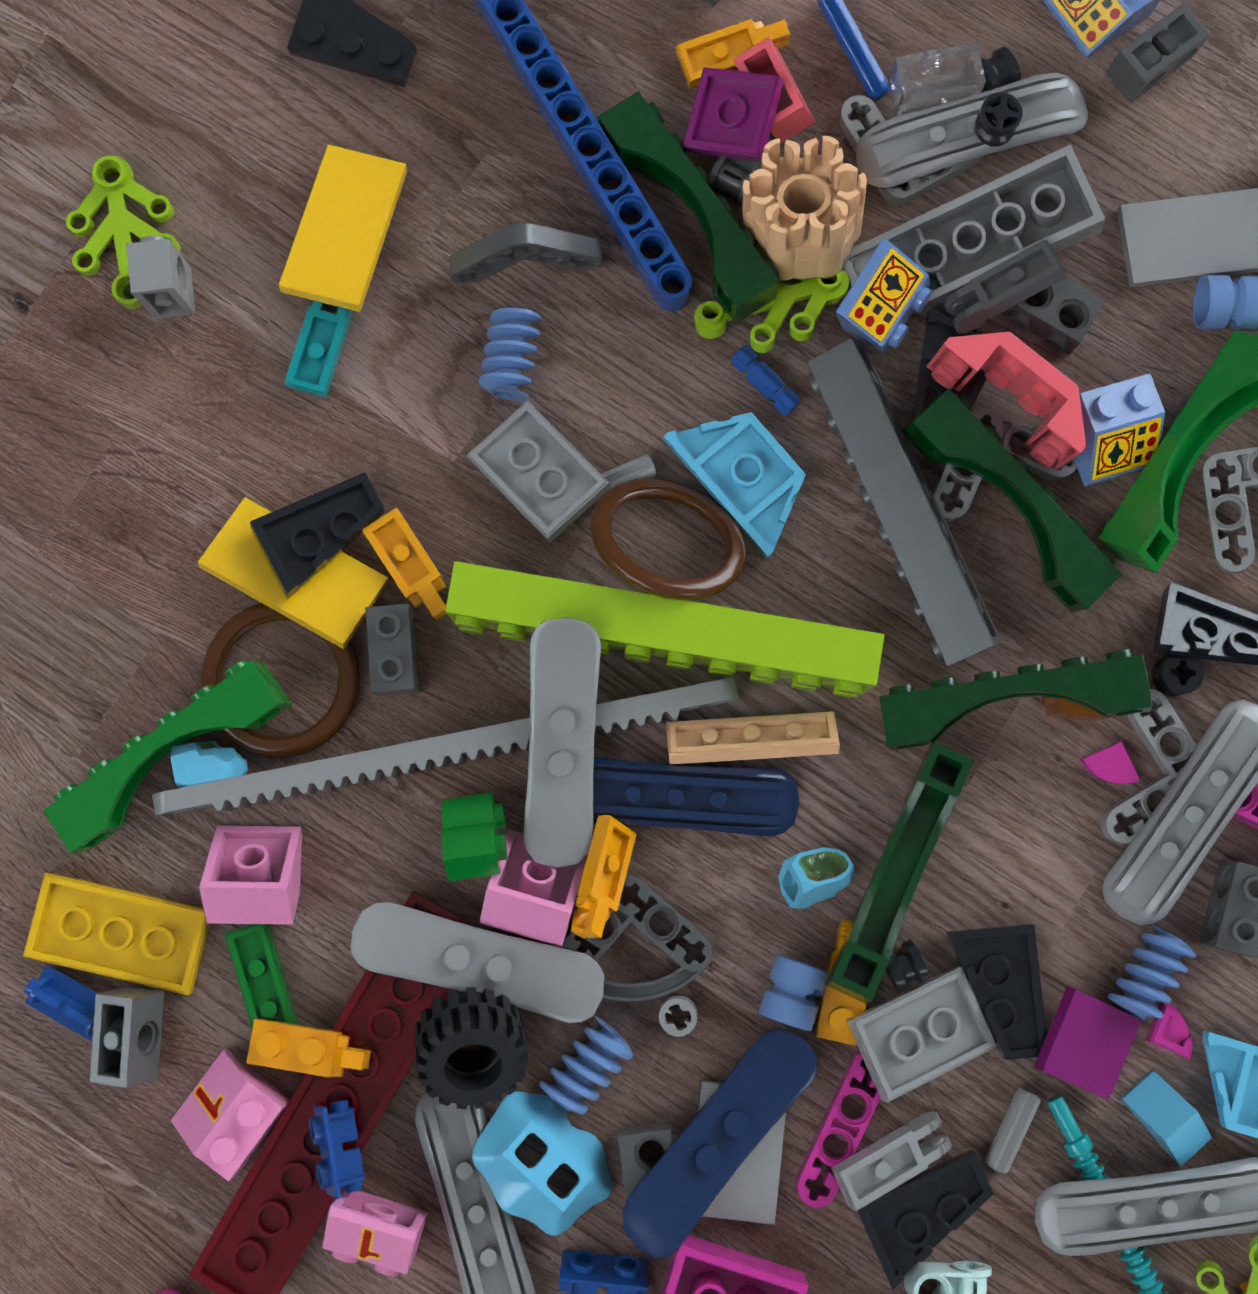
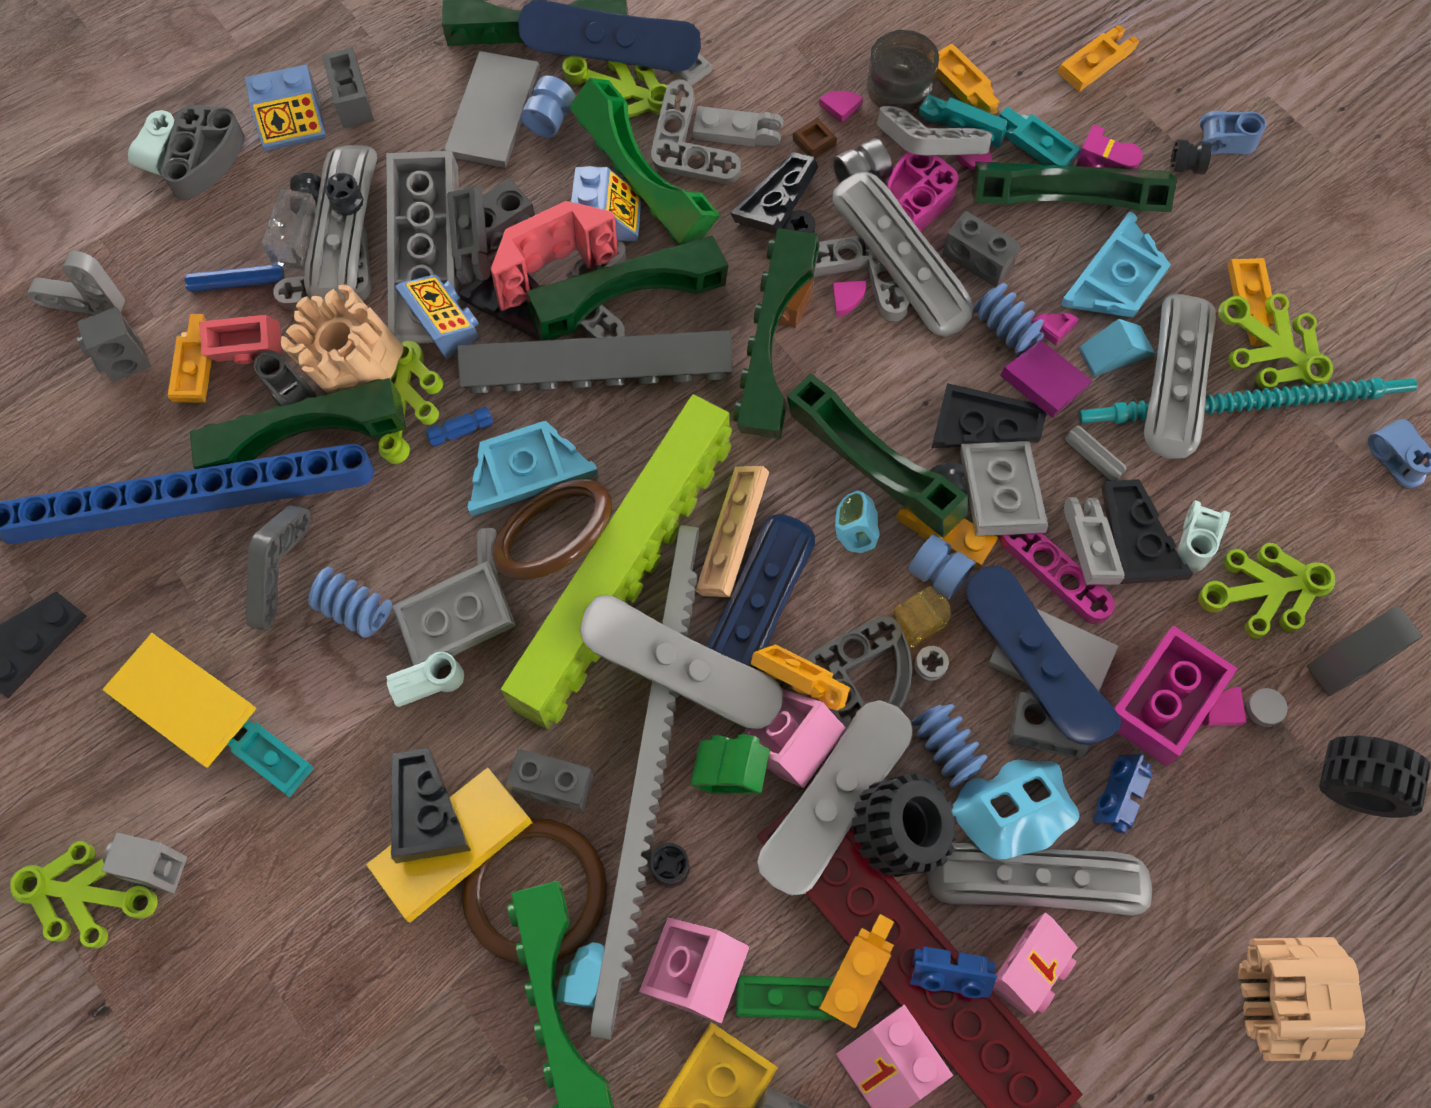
camera: 70 degrees left, 15 degrees down
(343, 811) = (667, 859): none -> black wheel
(407, 562) = (482, 745): light orange hinge -> none
(456, 470) = (422, 679): none -> light aqua piece
(727, 989) = (922, 615): none -> clear yellow brick
(733, 114) = (244, 368): magenta tile -> none

